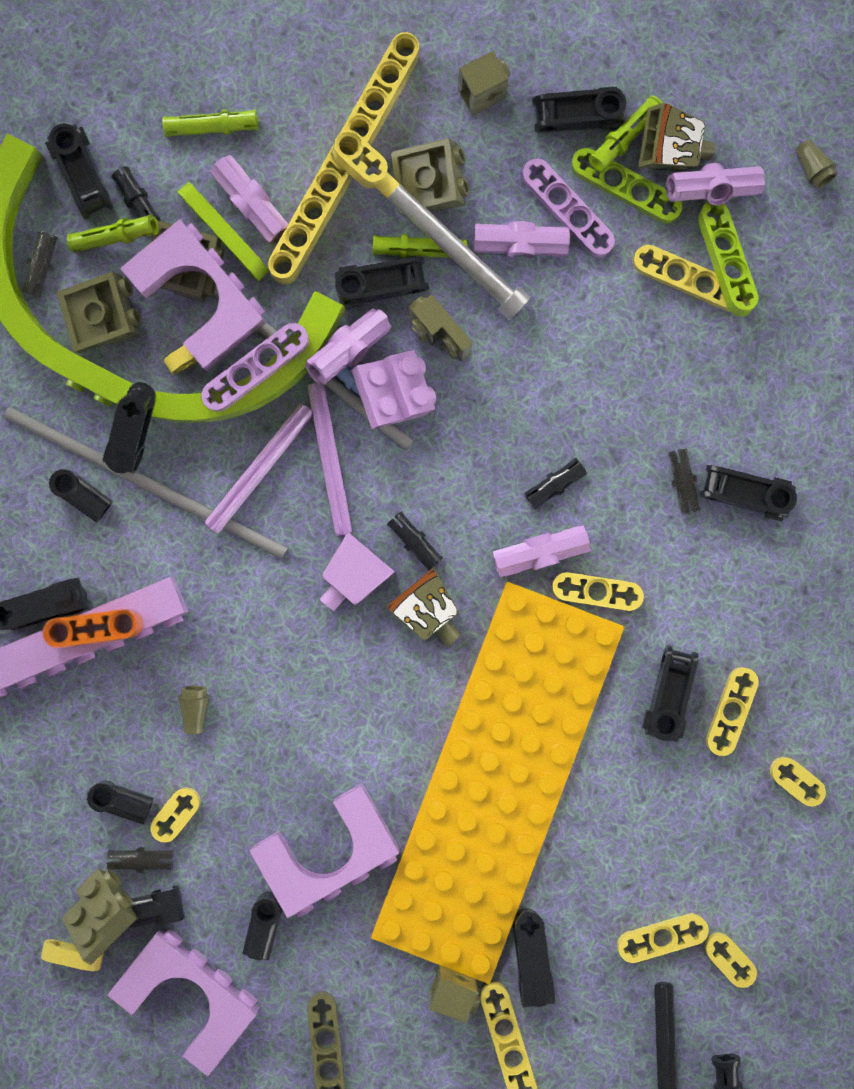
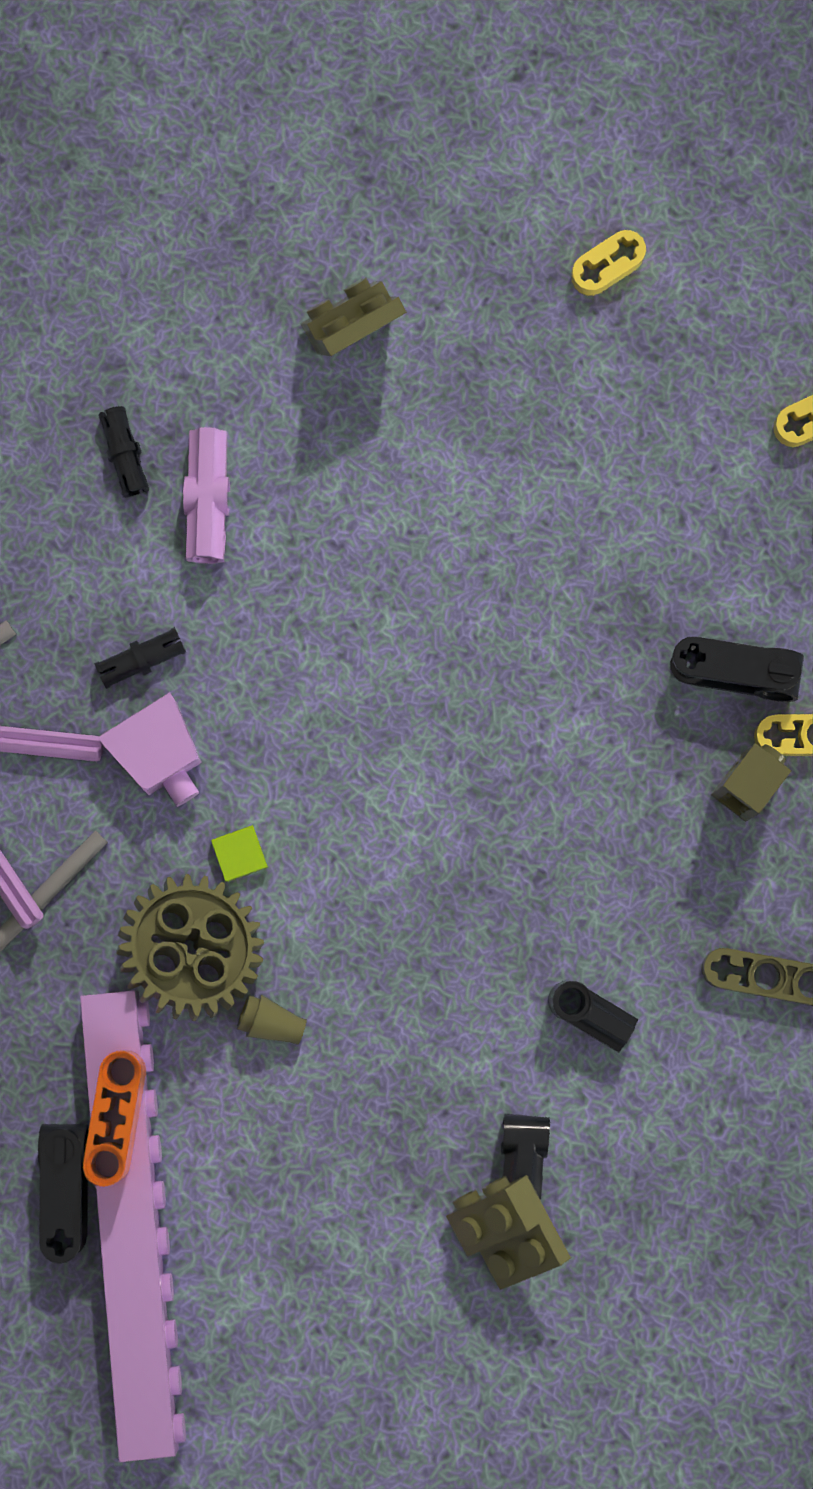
camera: 75 degrees left, 5 degrees down
(67, 955) = (553, 1292): light yellow beam -> none
(123, 802) = (368, 1154): black piece -> none
(140, 860) = (453, 1156): clear smoke pin -> none
(181, 819) = (397, 1096): light yellow beam -> none
(198, 644) = (184, 986): none -> olive gear
(229, 1008) = (596, 1159): lavender arch -> none
(300, 888) = (525, 835): lavender arch -> none
(301, 651) = (239, 853): none -> lime tile
(427, 609) = (234, 666): torso -> none
(497, 782) = (494, 647): yellow plate -> none
(621, 587) = (285, 407): light yellow beam -> none
(671, 694) = (446, 386): black piece -> none
(673, 945) = (772, 463): light yellow beam -> none
(684, 481) = (174, 286): clear smoke pin -> none
(698, 615) = (352, 318): none -> olive plate
(716, 730) = (492, 300): light yellow beam -> none
(748, 491) = (214, 208): black piece -> none

